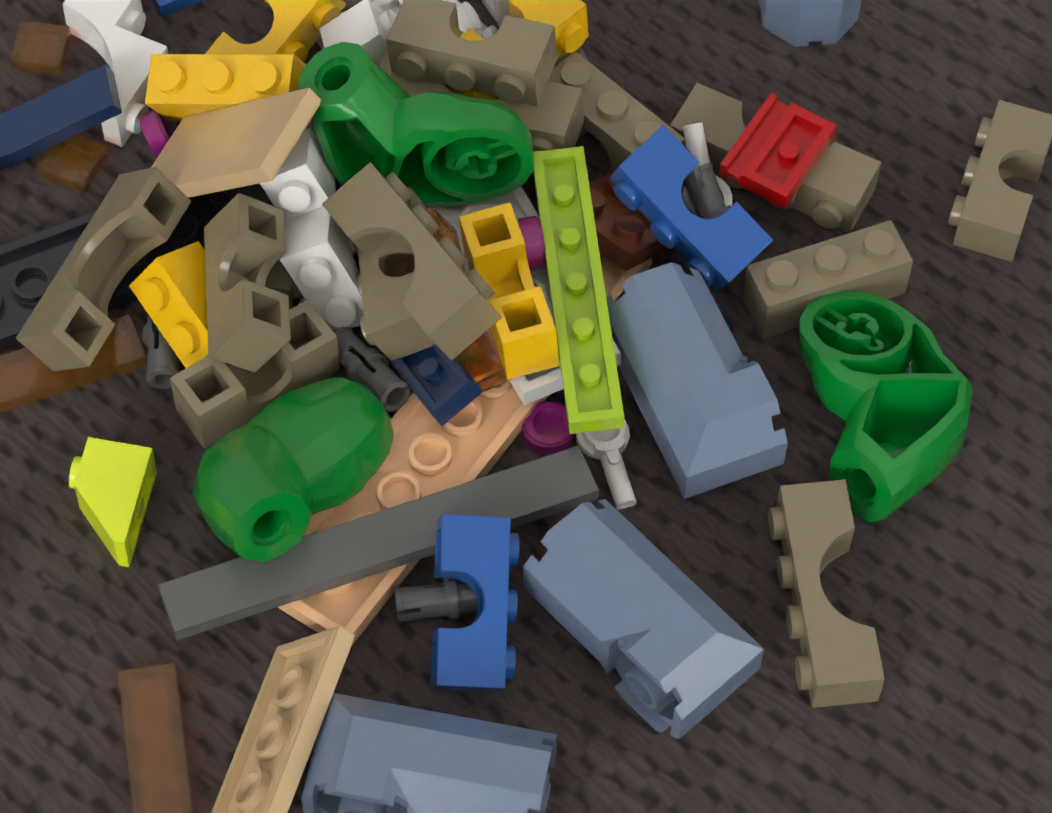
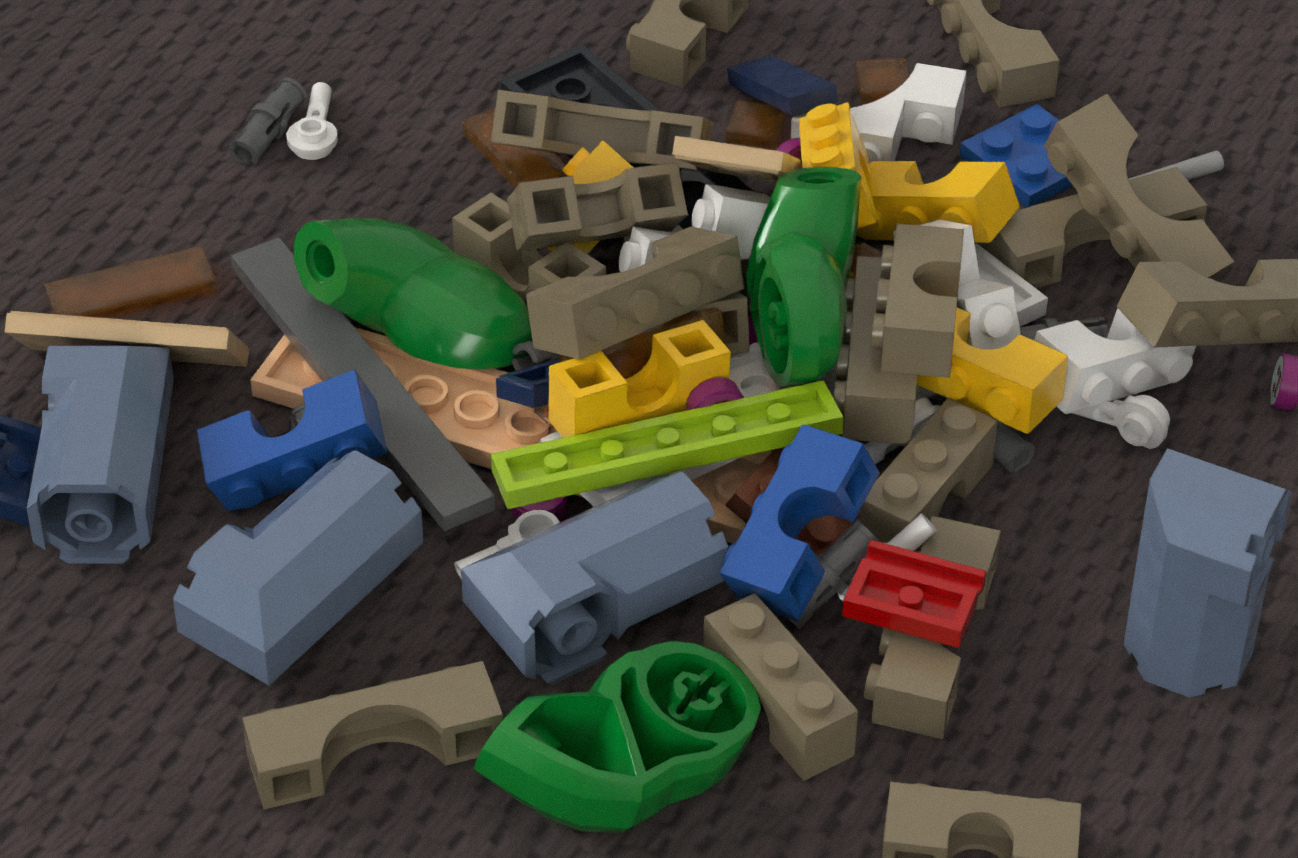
camera: 80 degrees right, 15 degrees down
(114, 492) = (383, 194): neon yellow slope -> none

